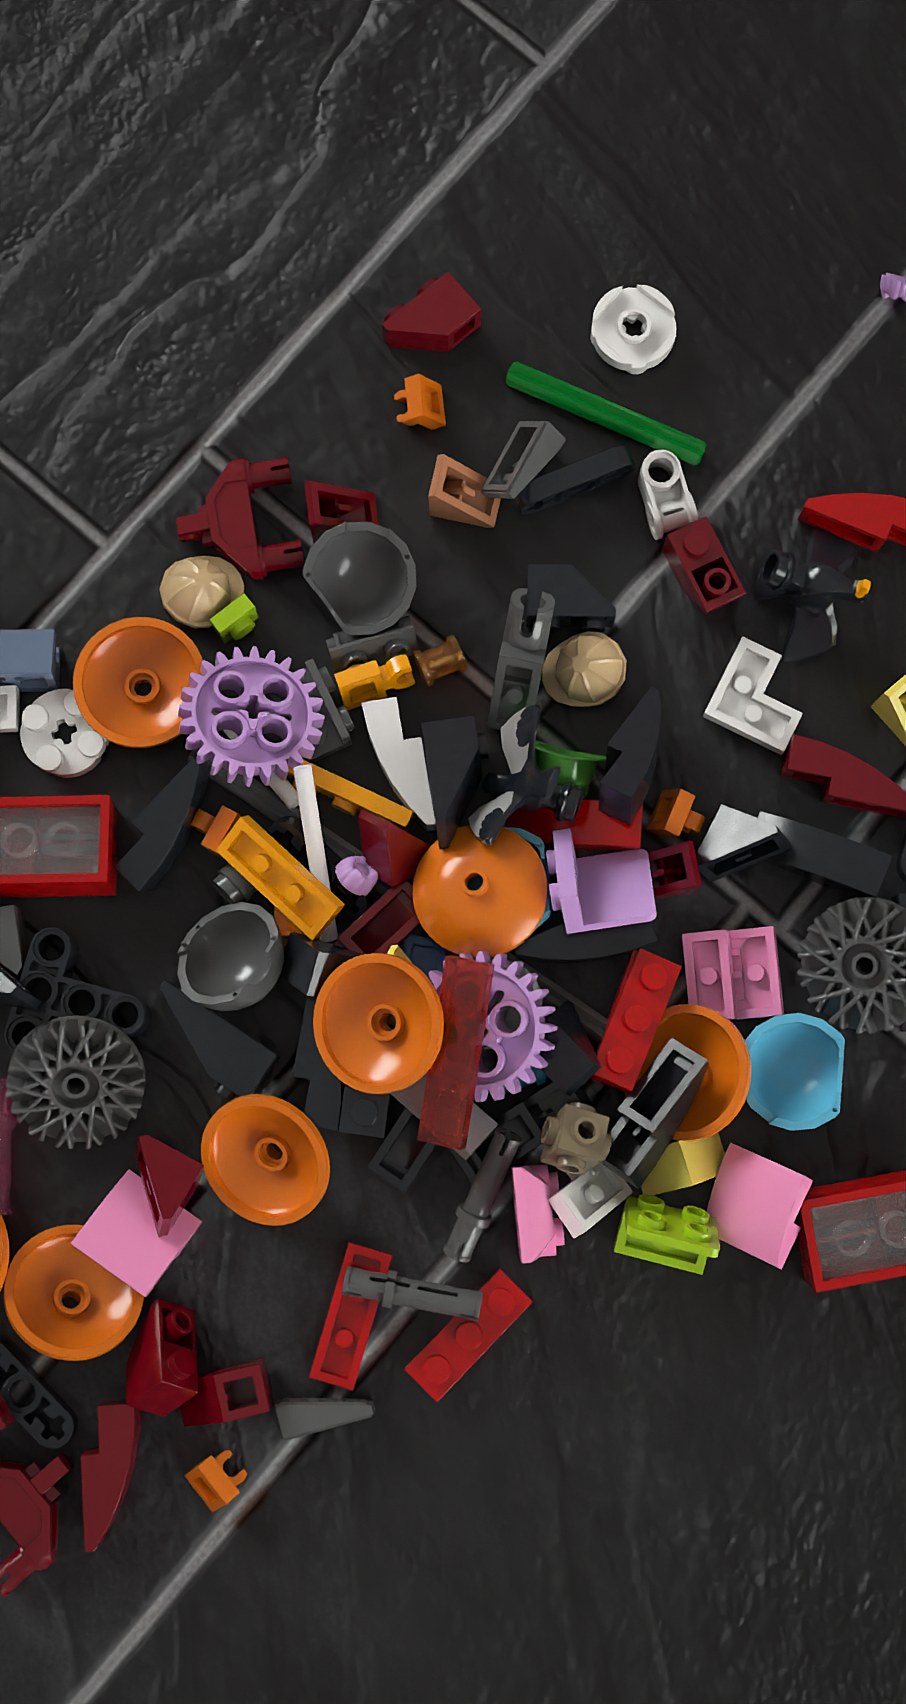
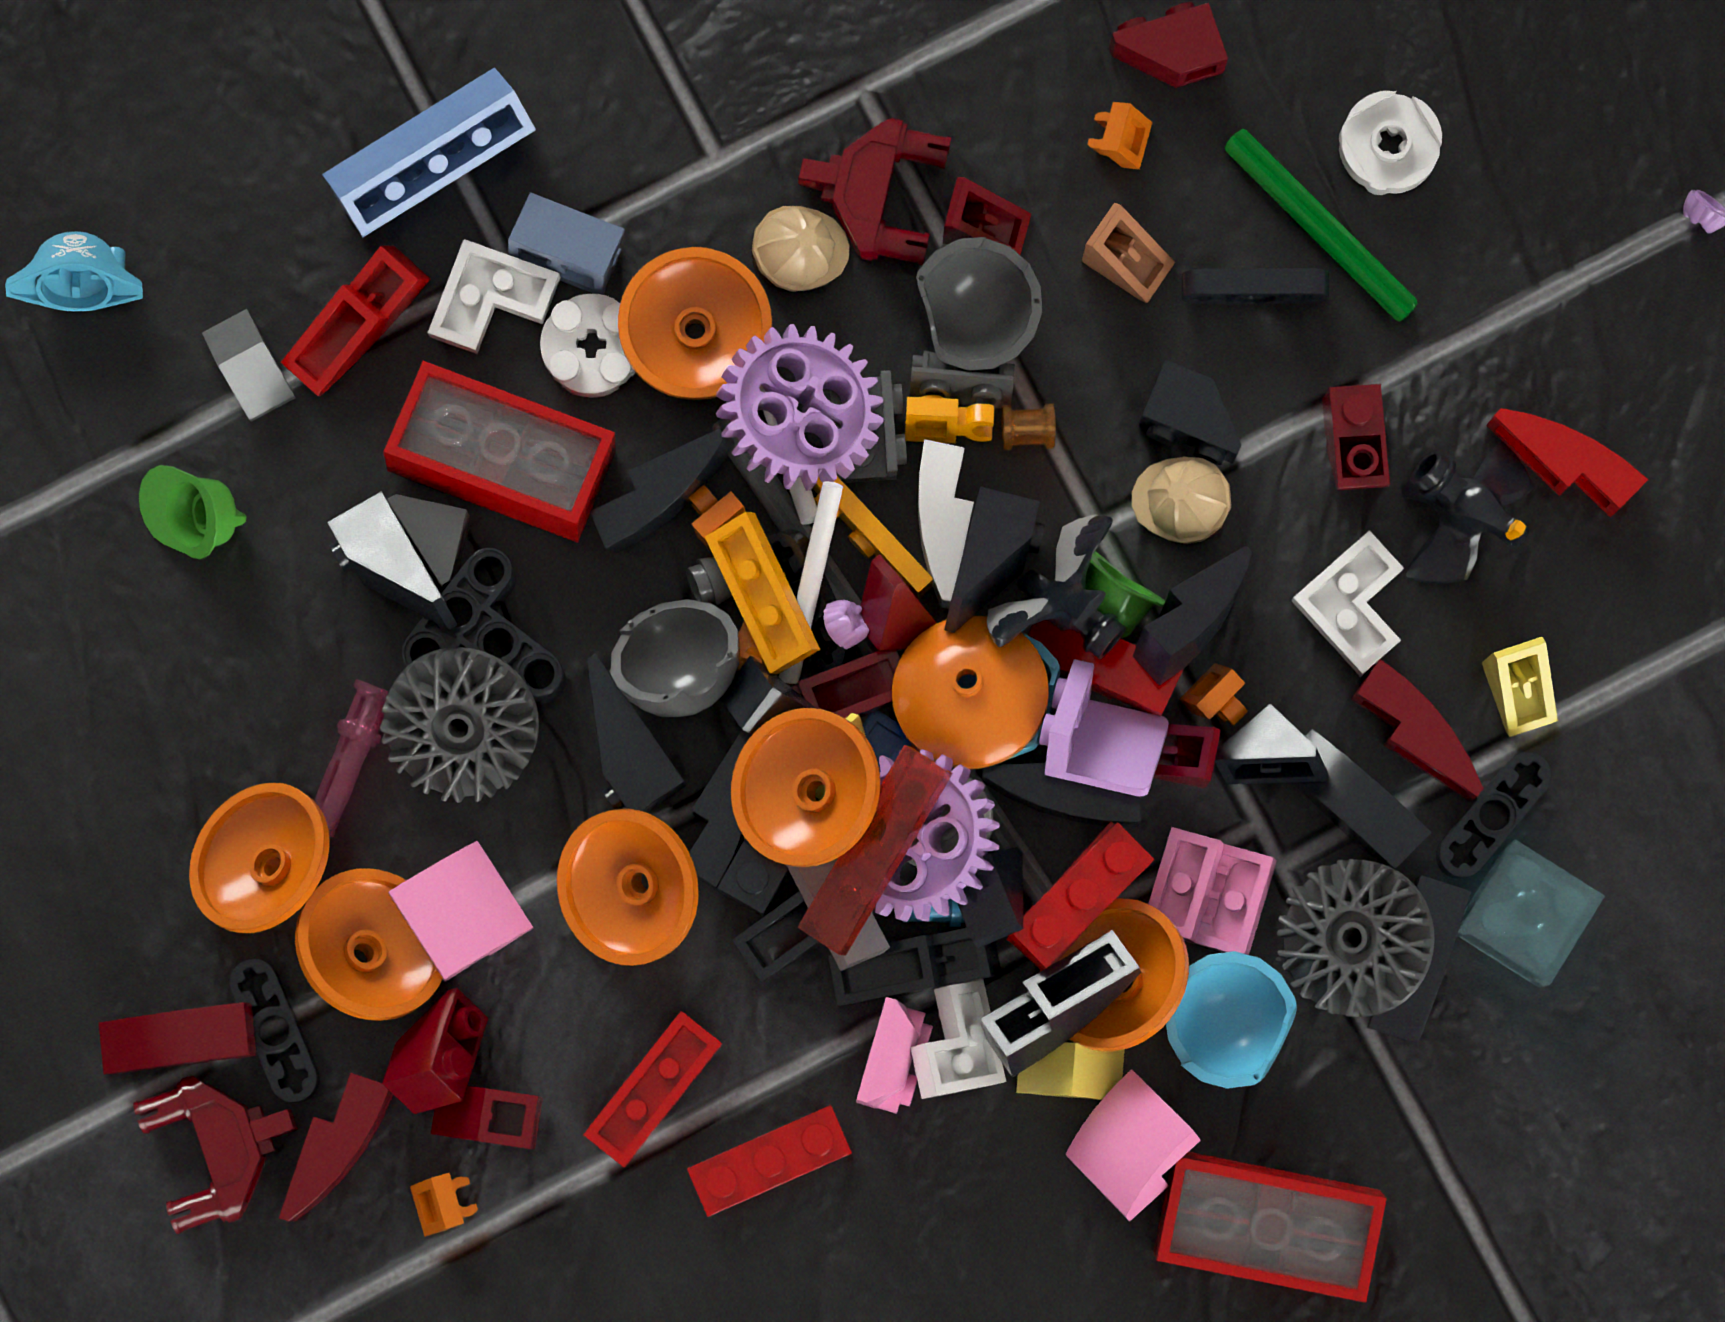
camera: 20 degrees right, 0 degrees up
(167, 1180) = (514, 866): dark red slope -> none
(235, 619) = (824, 294): lime plate -> none
(311, 1415) = (565, 1175): dark grey slope -> none
(412, 1293) = (719, 1084): dark grey pin -> none
(475, 1211) = (827, 1033): dark grey pin -> none
(520, 659) = (1114, 460): dark grey plate -> none
(523, 458) = (1206, 241): dark grey slope -> none
(575, 1138) = (965, 994): dark tan brick -> none
(667, 1234) = (1023, 1137): lime bracket -> none
(669, 502) = (1349, 352): white piece -> none

